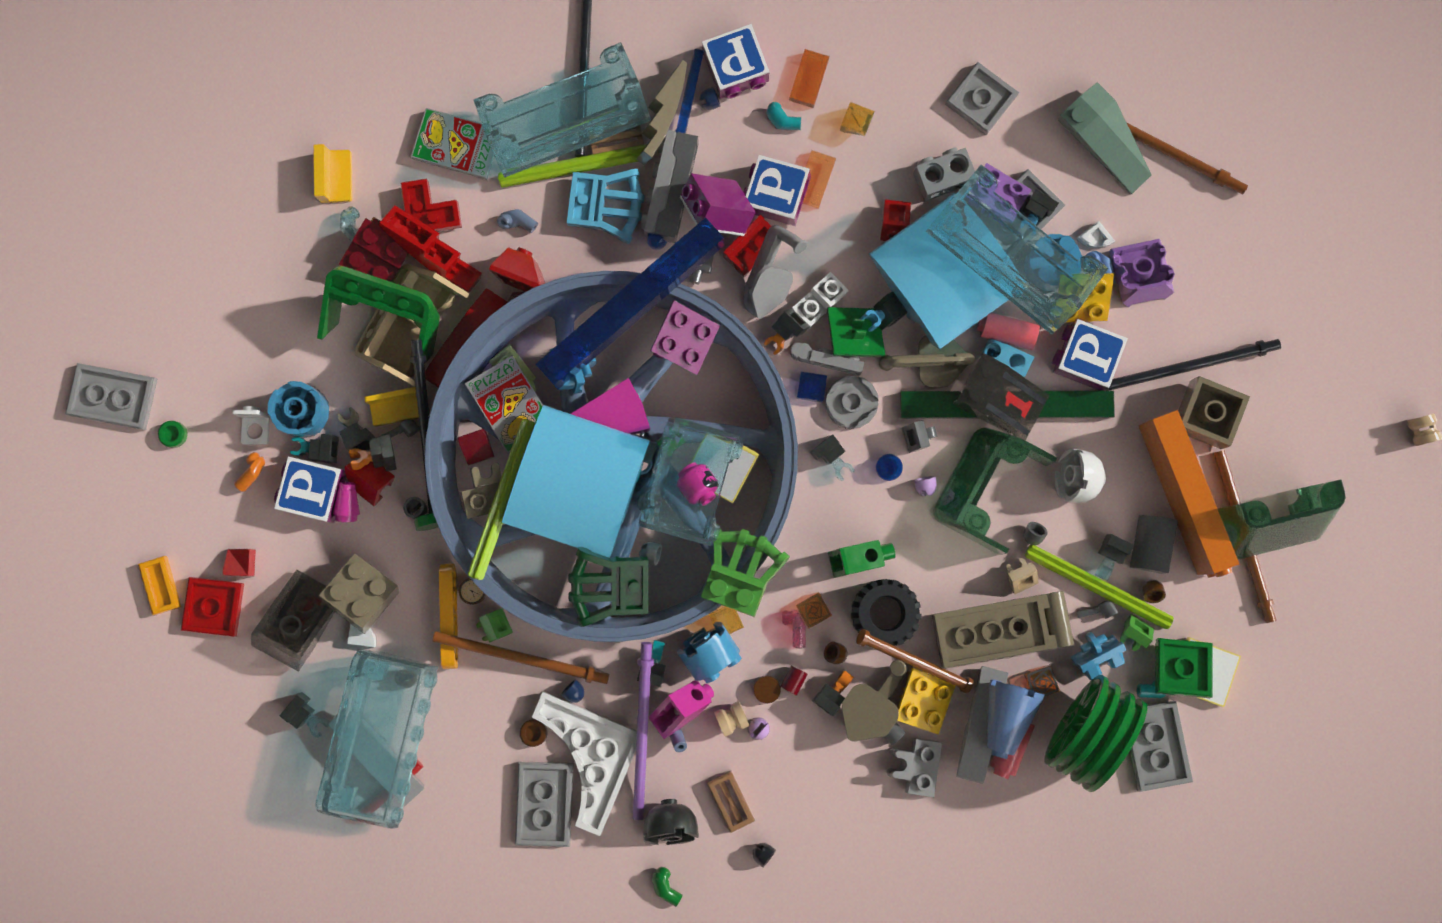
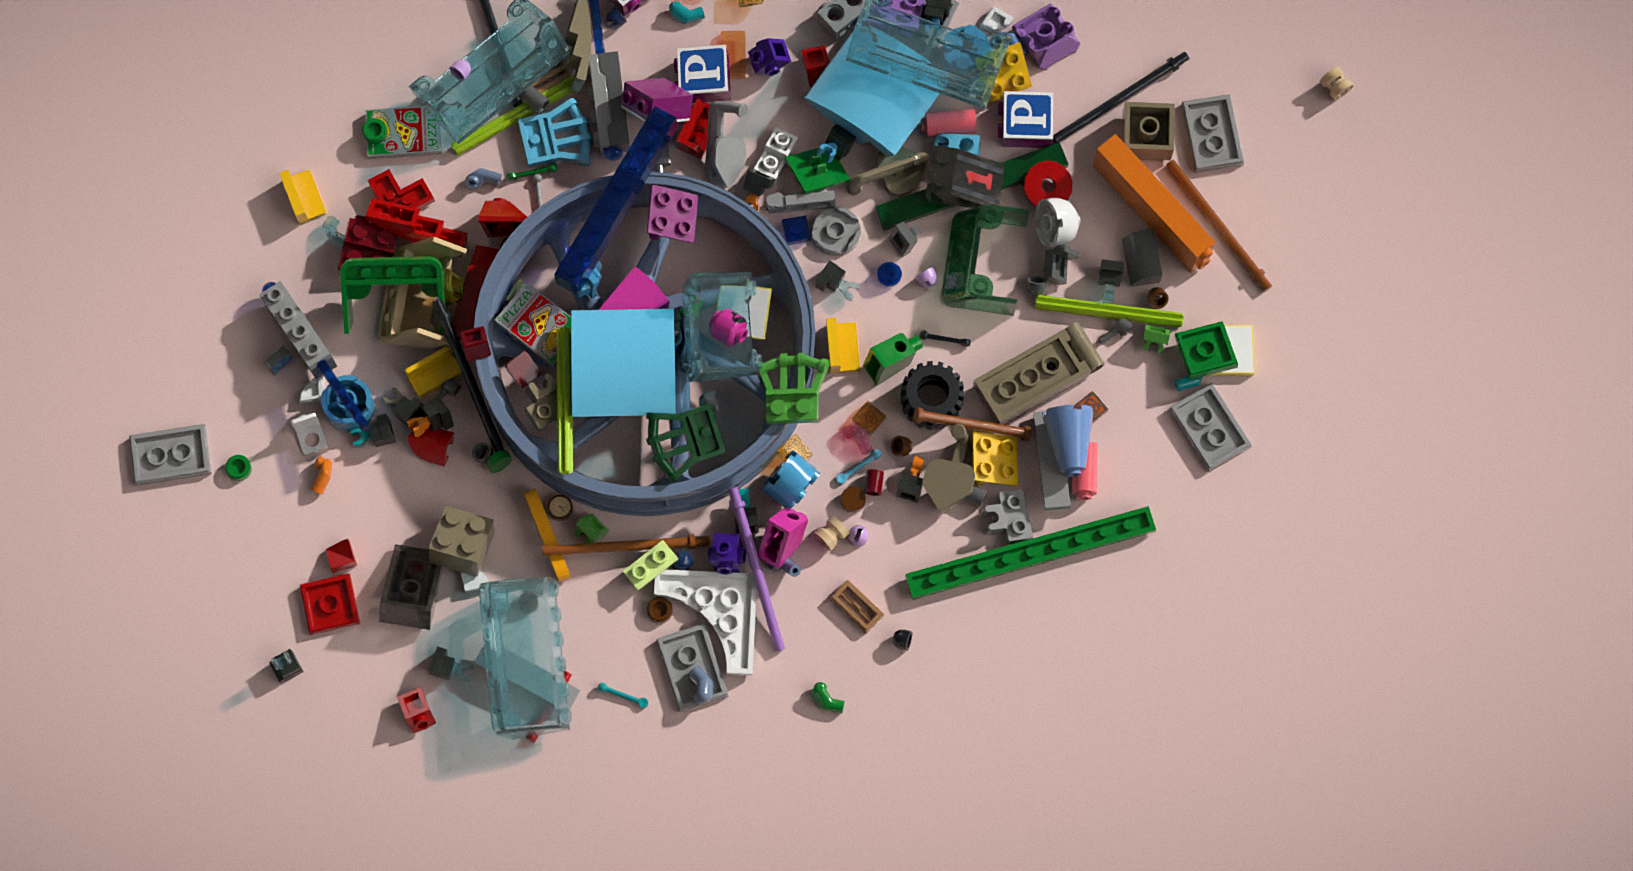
camera: 25 degrees left, 10 degrees down
(145, 655) = (285, 666): none -> pearl dark grey piece
(159, 585) = (275, 602): light orange tile -> none
(248, 339) = (278, 360): none -> dark grey tile
(256, 748) = (416, 710): none -> red bracket
(272, 381) = (312, 391): none -> white tile
(277, 332) = (307, 343): none -> light grey piece
(308, 489) = (382, 469): piece -> none
(346, 503) = (420, 470): dark pink cone -> none
(426, 133) = (374, 131): none -> green tile
(433, 404) = (475, 343): none -> dark red slope
(442, 327) = (452, 287): none -> clear yellow slope
(483, 821) = (643, 702): none -> teal hinge
(533, 99) = (460, 69): none -> lavender hinge
(538, 687) = (650, 565): none -> yellowish green hinge
(548, 831) = (705, 685): none -> sand blue arm
(572, 239) = (537, 179): none -> light grey hinge
(591, 234) = (513, 176): none -> green hinge
(597, 158) = (535, 99): none -> dark grey hinge
(618, 703) = (727, 553): none -> dark purple brick
(670, 823) = (810, 641): pearl dark grey cylinder -> none
(764, 662) = (842, 478): none -> medium azure hinge
(814, 526) = (842, 346): none -> yellow panel
(845, 193) = (769, 56): none -> dark purple brick
(901, 543) = (925, 335): none -> black hinge
(926, 812) = (1030, 553): none -> green plate
(1023, 577) = (1040, 324): tan tile -> none
(1063, 518) = (1056, 263): none -> dark grey bracket
(1085, 416) = (1047, 170): none -> red tile
(1096, 733) = (1147, 424): green wheel -> none
(1097, 651) = (1123, 375): dark azure hips -> none
(1256, 533) = (1233, 211): clear green windscreen -> none
(1274, 436) = (1212, 133): none -> light grey tile

